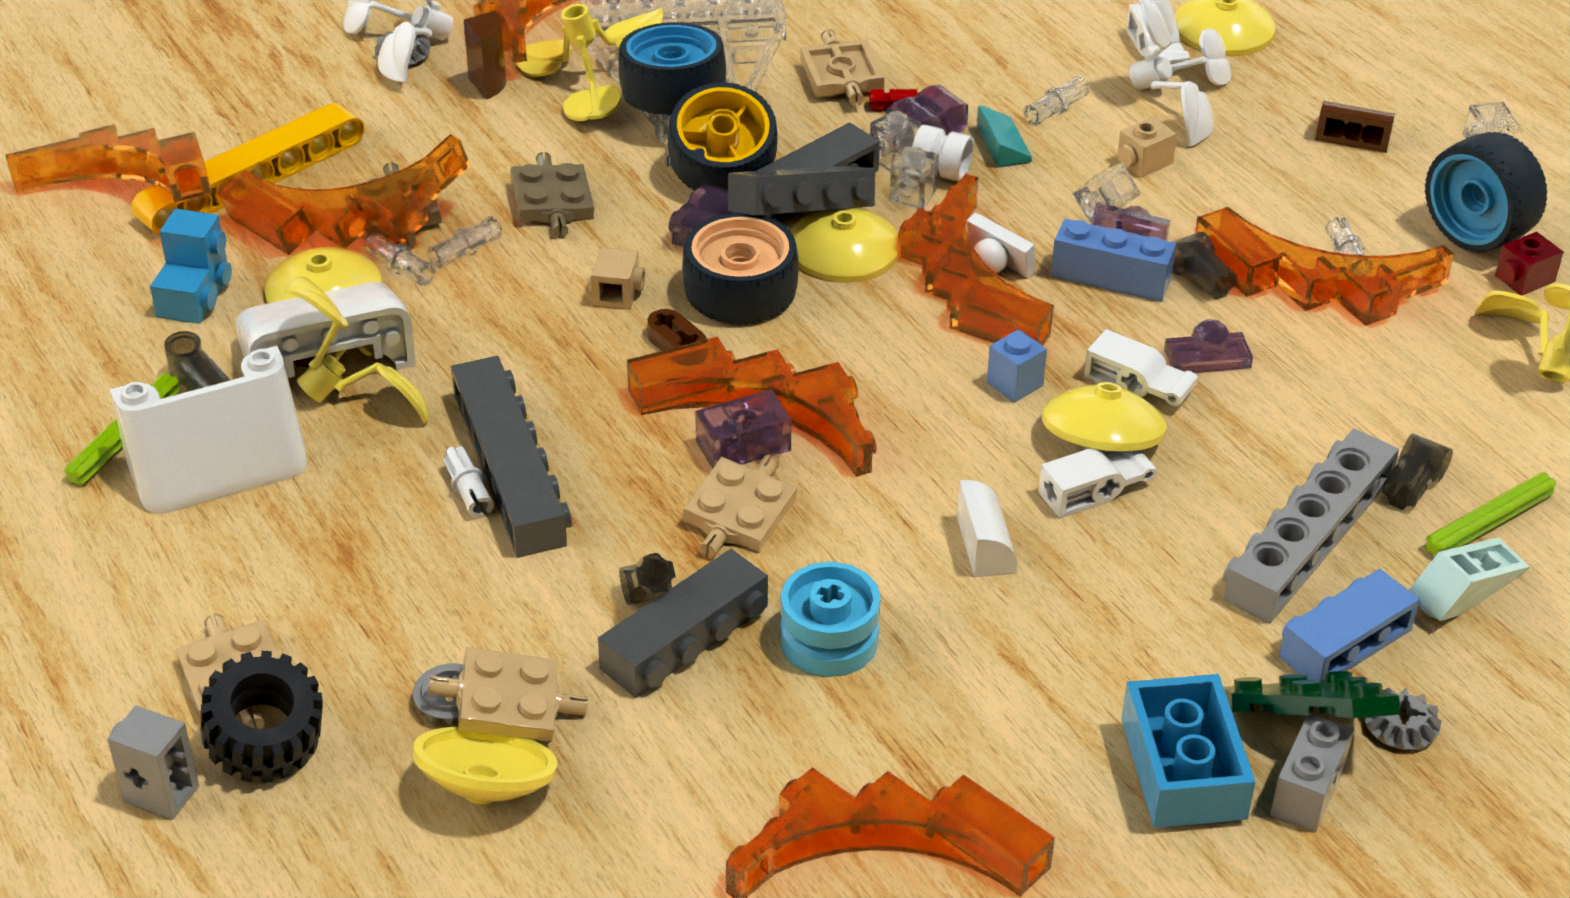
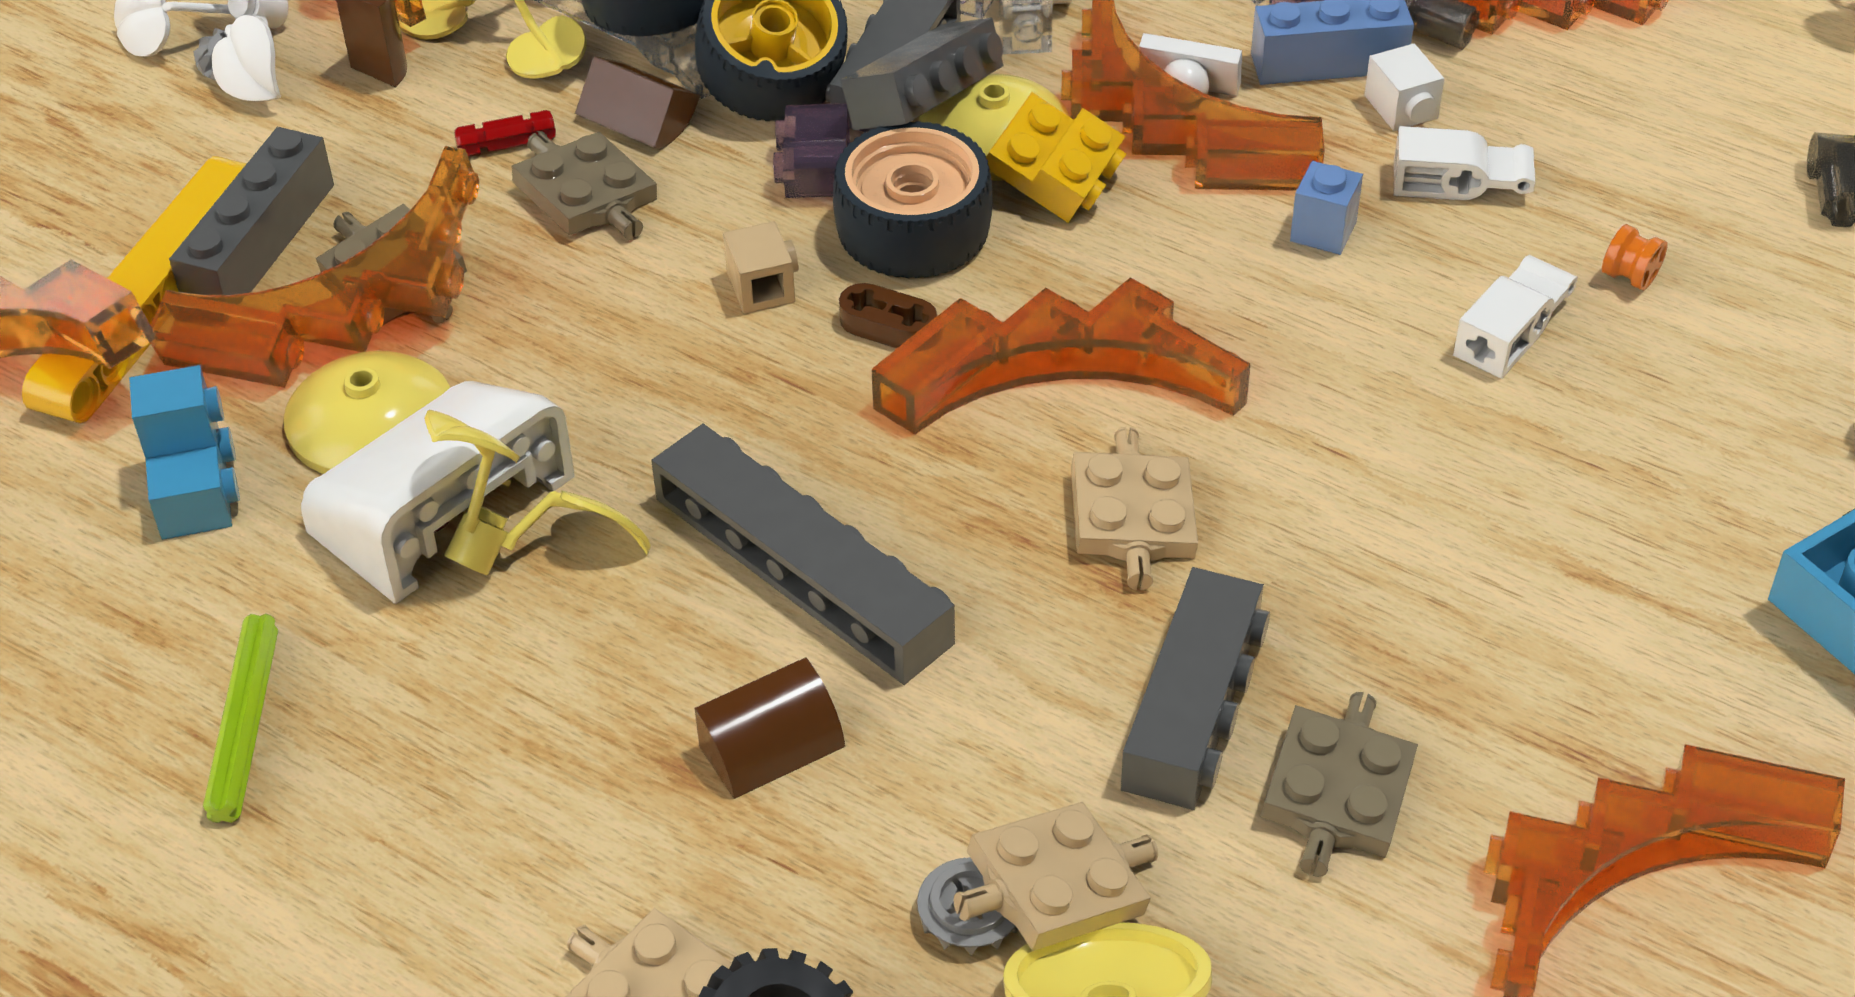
camera: 25 degrees left, 5 degrees up
(190, 362) = (288, 593): clear smoke piece -> none
(211, 437) = (402, 691): white windscreen -> none
(336, 146) = (255, 216): none -> dark grey brick
(399, 259) = (453, 340): clear pin -> none
(408, 547) = (769, 727): none -> reddish brown brick
(464, 242) = (520, 287): clear pin -> none
(467, 481) = (773, 607): white axle -> none
(526, 146) = (504, 132): none -> red axle
(620, 153) = (635, 102): none -> brick
(646, 579) = (1117, 648): clear smoke piece -> none
(734, 715) = (1339, 782): none -> dark tan plate
(744, 429) = (1070, 408): brick -> none
(829, 619) = (1368, 610): medium azure wheel -> none
(859, 272) = (1056, 156): none -> yellow plate
(984, 530) = (1445, 428): white brick -> none
(1104, 418) = (1475, 237): light yellow dish -> none
(1140, 307) = (1404, 86): none -> white brick
(1209, 349) = (1514, 111): tile -> none
(1211, 471) = (1634, 257): none -> orange wheel
(1309, 525) = (1787, 283): light grey brick -> none

